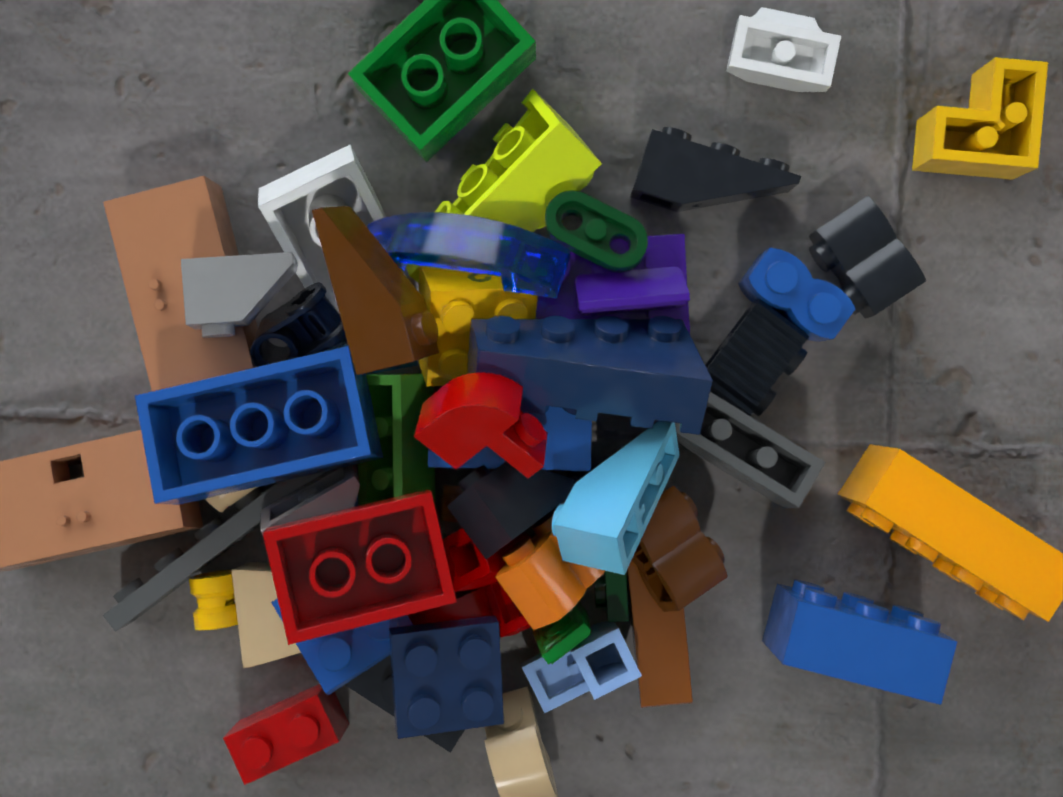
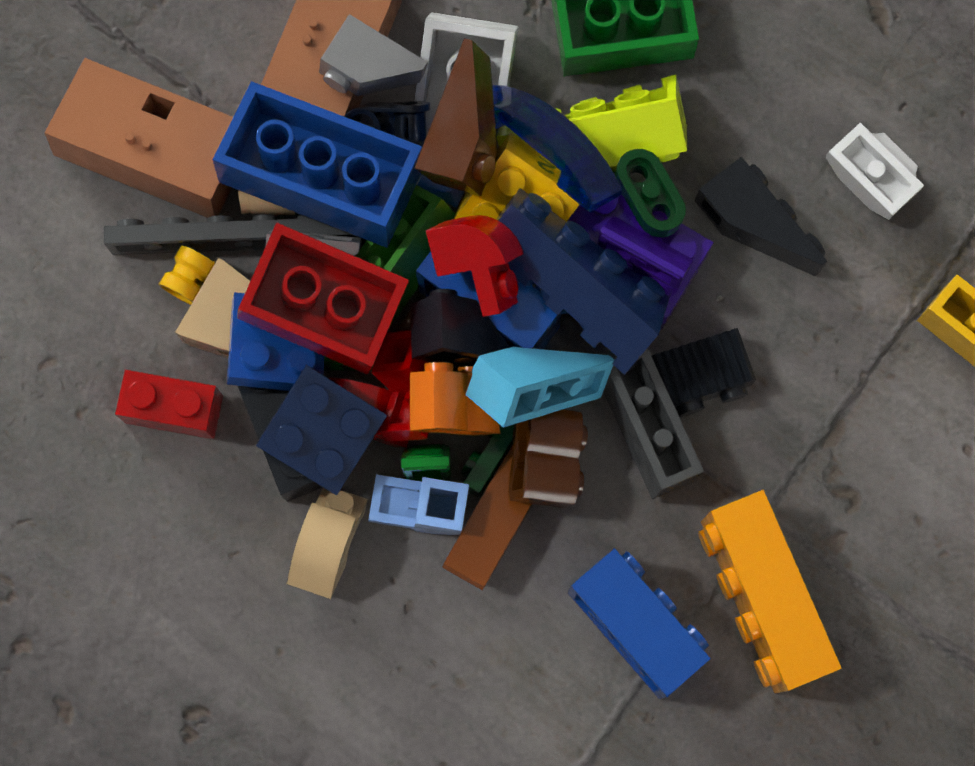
camera: 35 degrees right, 10 degrees down
(789, 289) = (770, 352): blue brick -> none
(866, 258) = (837, 357): black brick -> none

